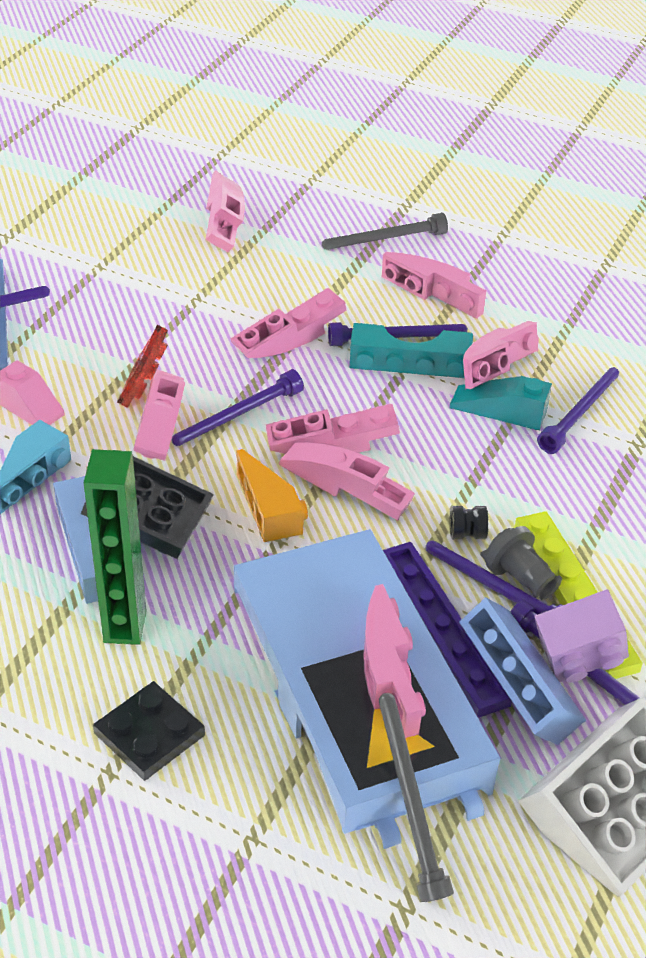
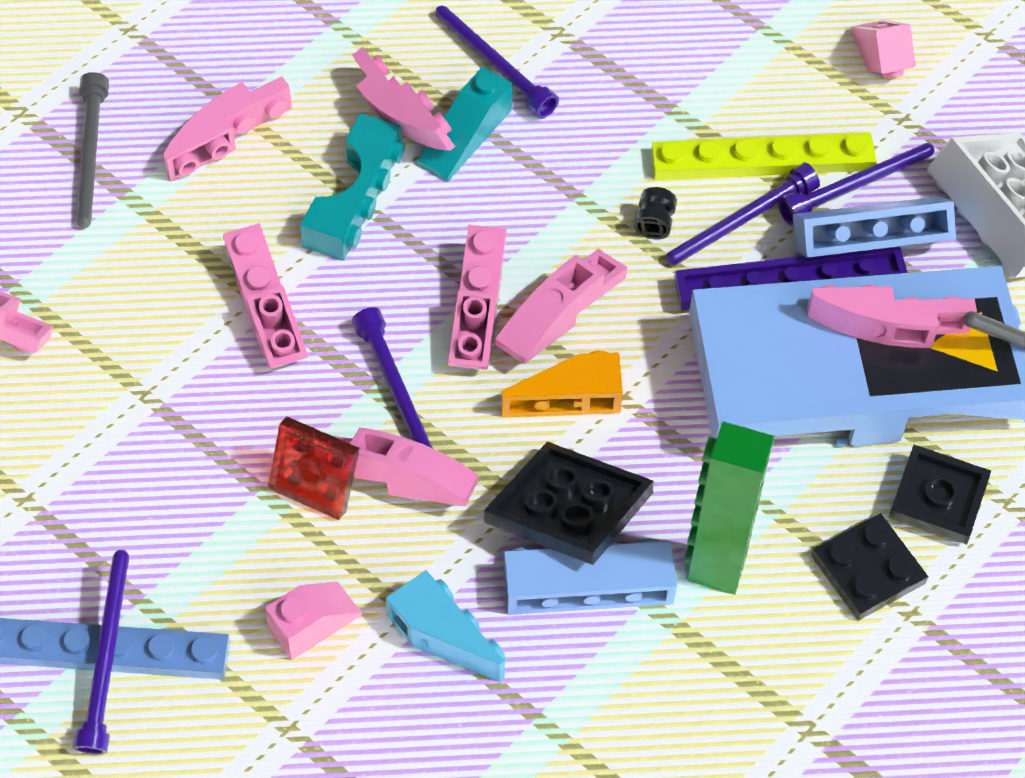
camera: 75 degrees left, 15 degrees up
(237, 771) = (940, 494): none -> black plate
(341, 333) = (289, 252): dark purple piece -> none
(513, 553) = (721, 185): dark grey piece -> none
(583, 636) = (870, 158): lavender brick -> none

